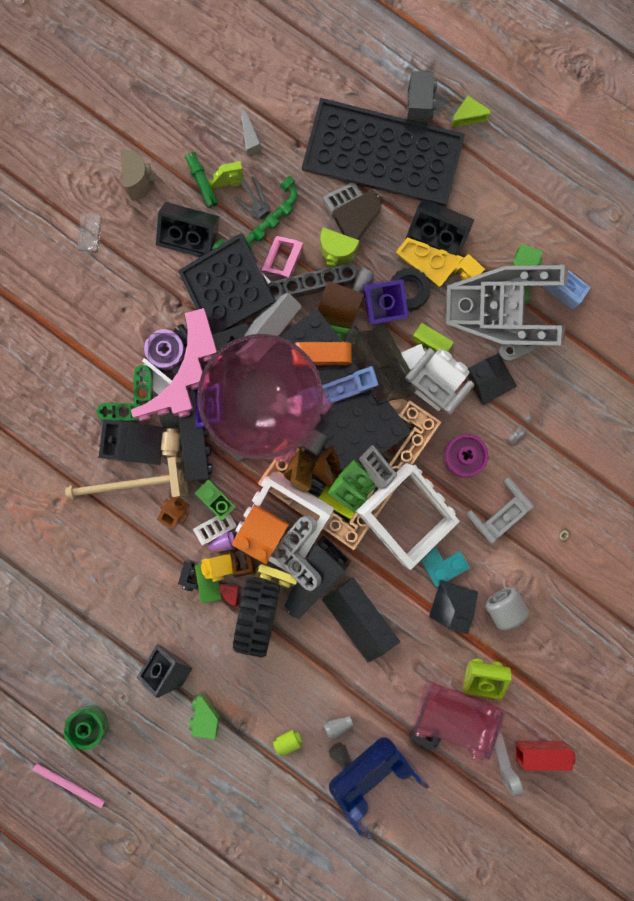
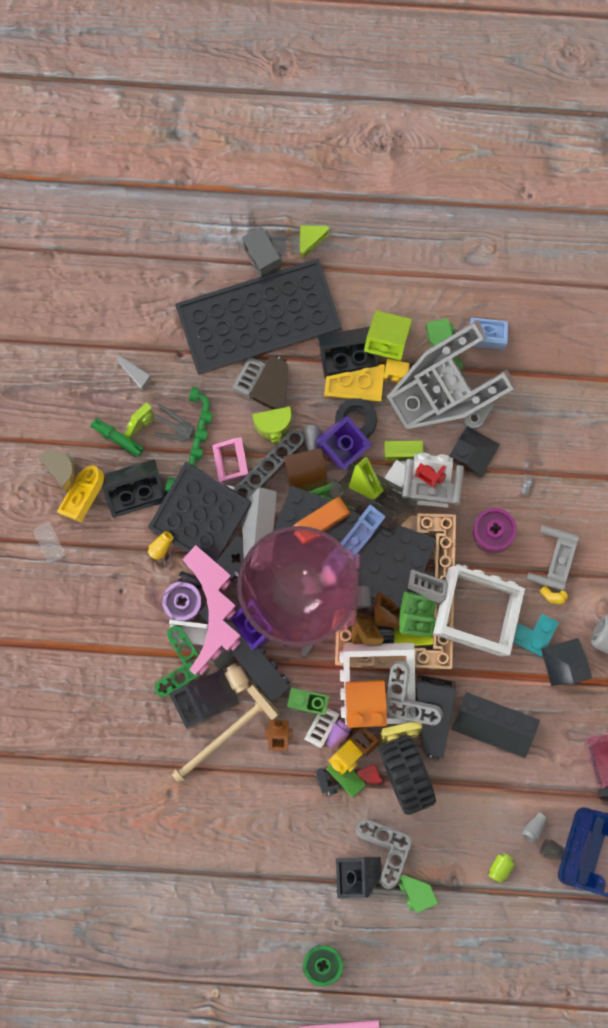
camera: 30 degrees left, 5 degrees down
(141, 207) = (82, 493): none -> yellow tile
(177, 292) = (160, 546): none -> yellow cone
(208, 670) = (395, 849): none -> light grey beam
(383, 344) = (365, 480): none -> lime slope
(439, 374) = (429, 476): none -> red bracket
(478, 544) = (553, 598): none -> yellow arm
(481, 233) = (387, 335): none -> lime panel

